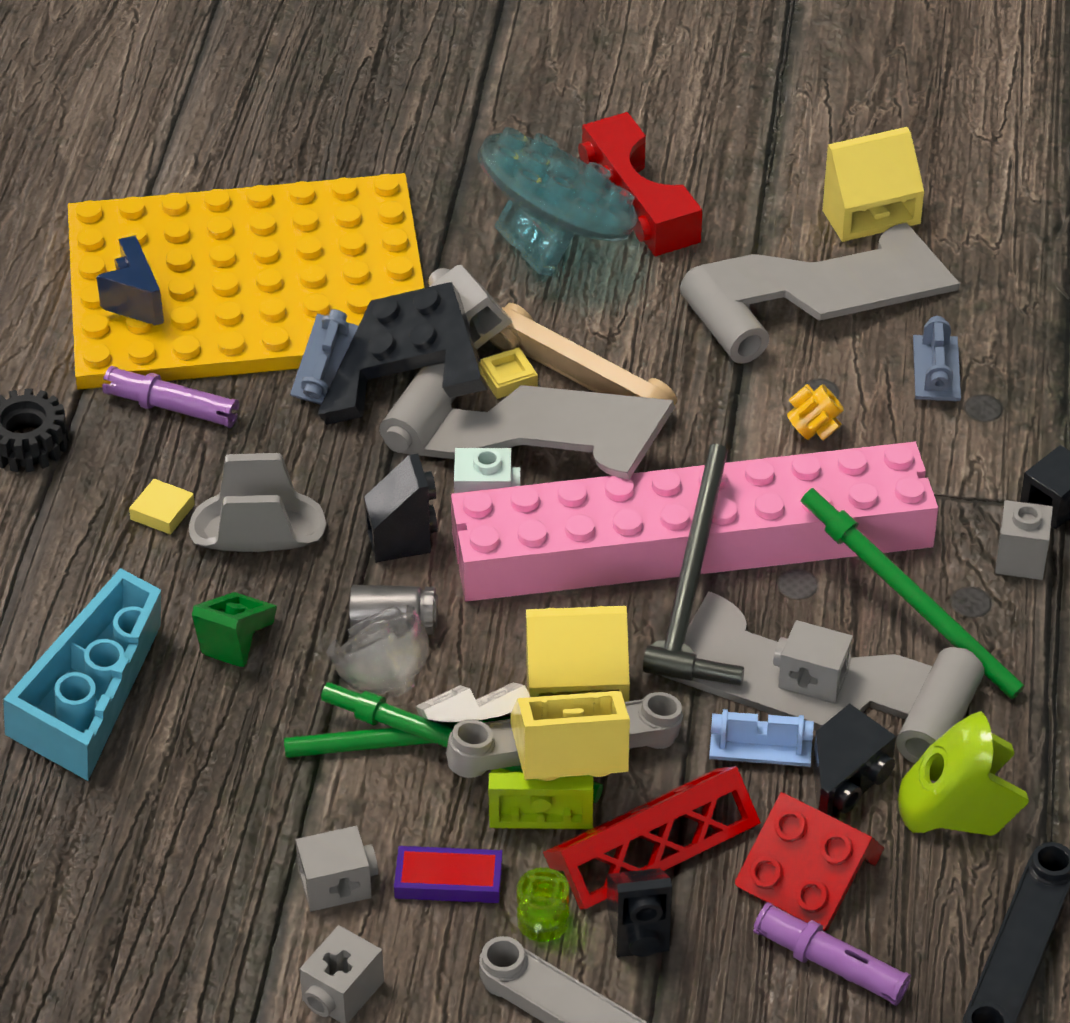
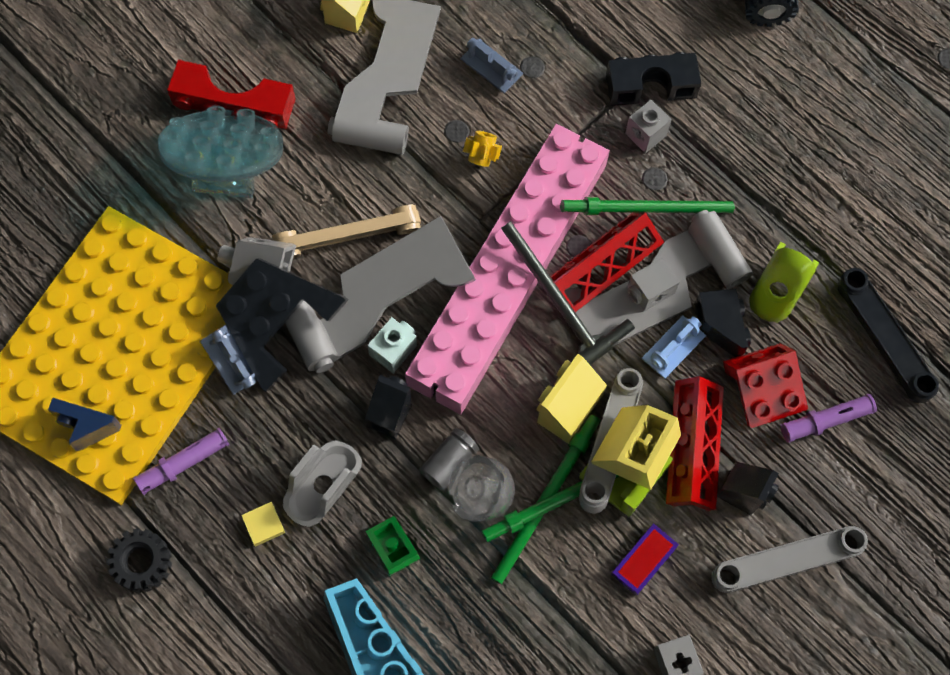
camera: 55 degrees left, 25 degrees up
(335, 867) = (606, 615): light grey brick -> none
(461, 705) = (559, 471): white slope -> none
(507, 372) = (315, 268): light yellow tile -> none
(543, 904) = (700, 534): clear neon green wheel -> none
(798, 593) = (605, 248): none -> red fence

